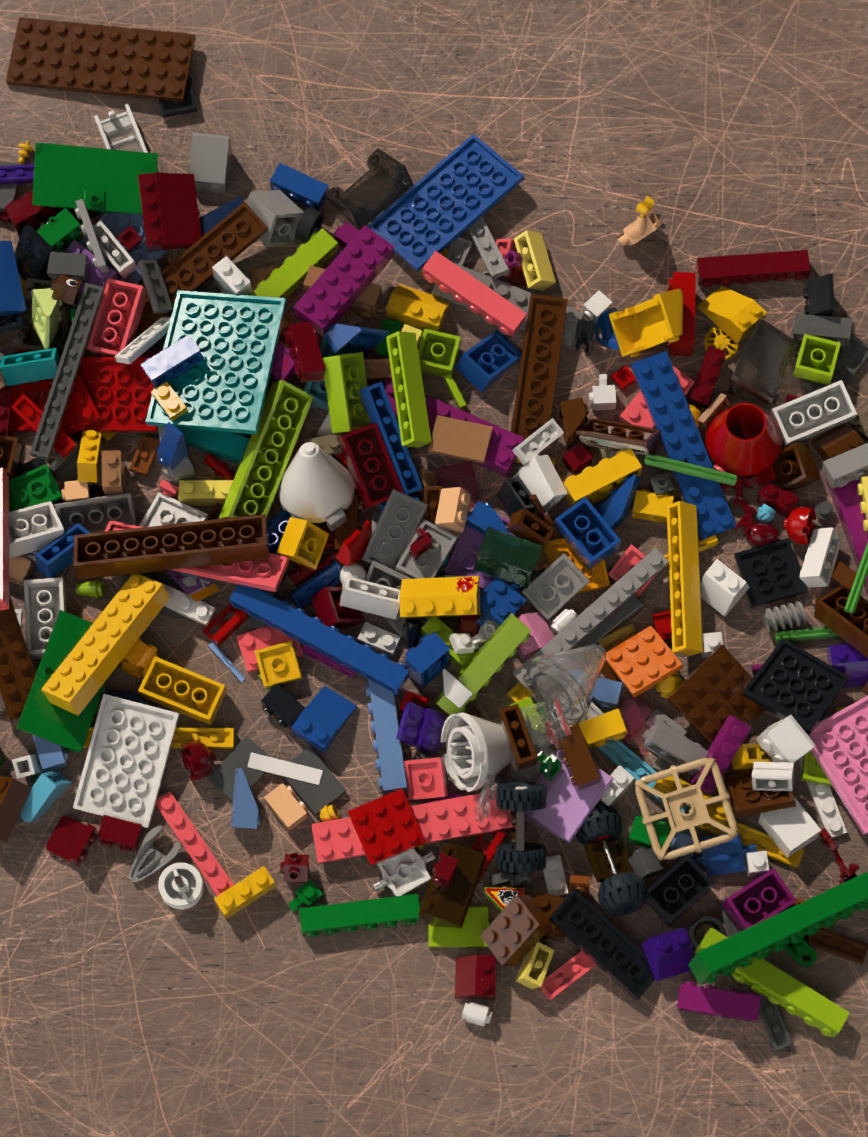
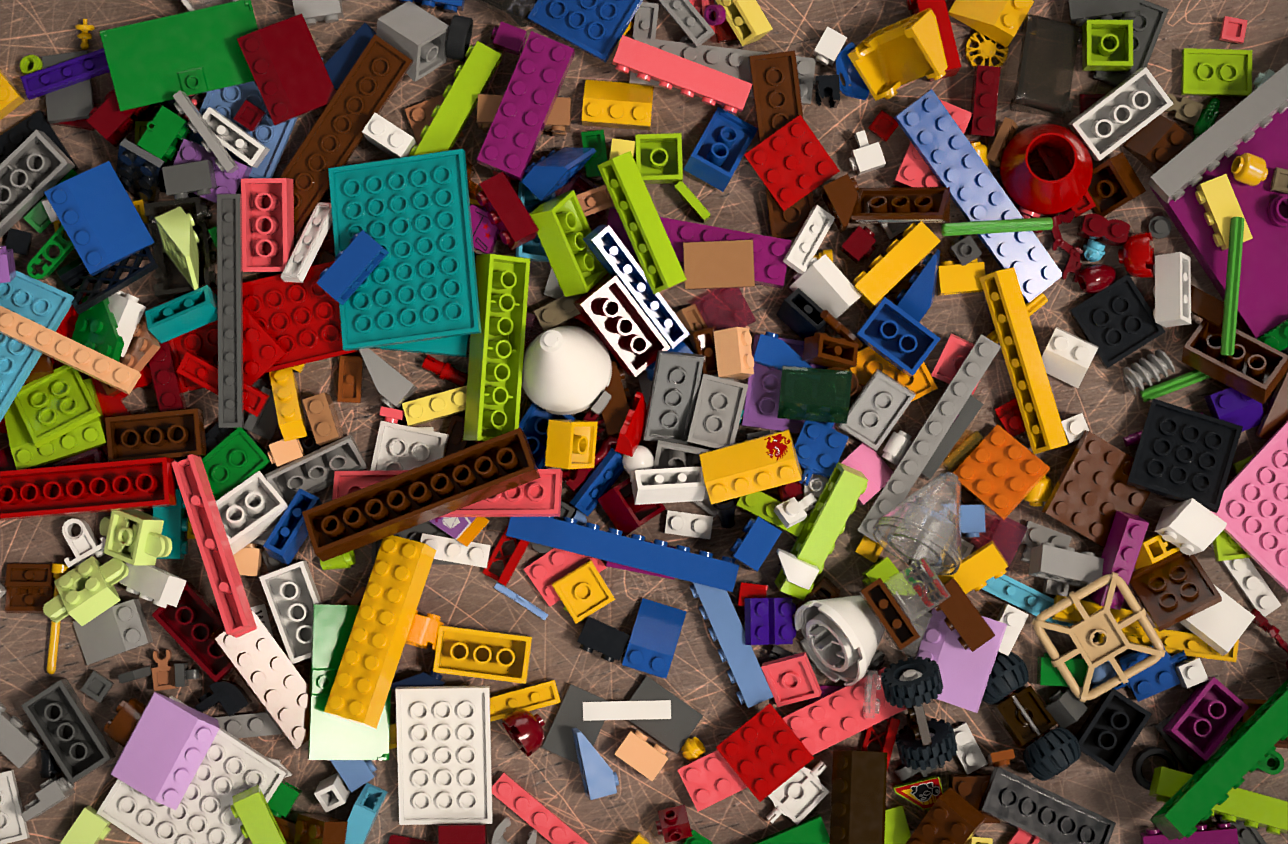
camera: 20 degrees left, 15 degrees up
(65, 289) = (195, 209): reddish brown brick -> none
(155, 286) = (299, 170): dark grey plate -> none
(169, 401) = (364, 317): yellow plate -> none
(172, 447) = (385, 378): blue slope -> none
(419, 547) = (708, 412): dark red bracket -> none
(444, 870) = (848, 790): dark red brick -> none
(540, 382) = (791, 163): none -> red plate
(550, 765) = (932, 634): green plate -> none
(669, 954) = (1119, 804): dark purple slope -> none
(773, 776) = (1187, 571): white brick -> none

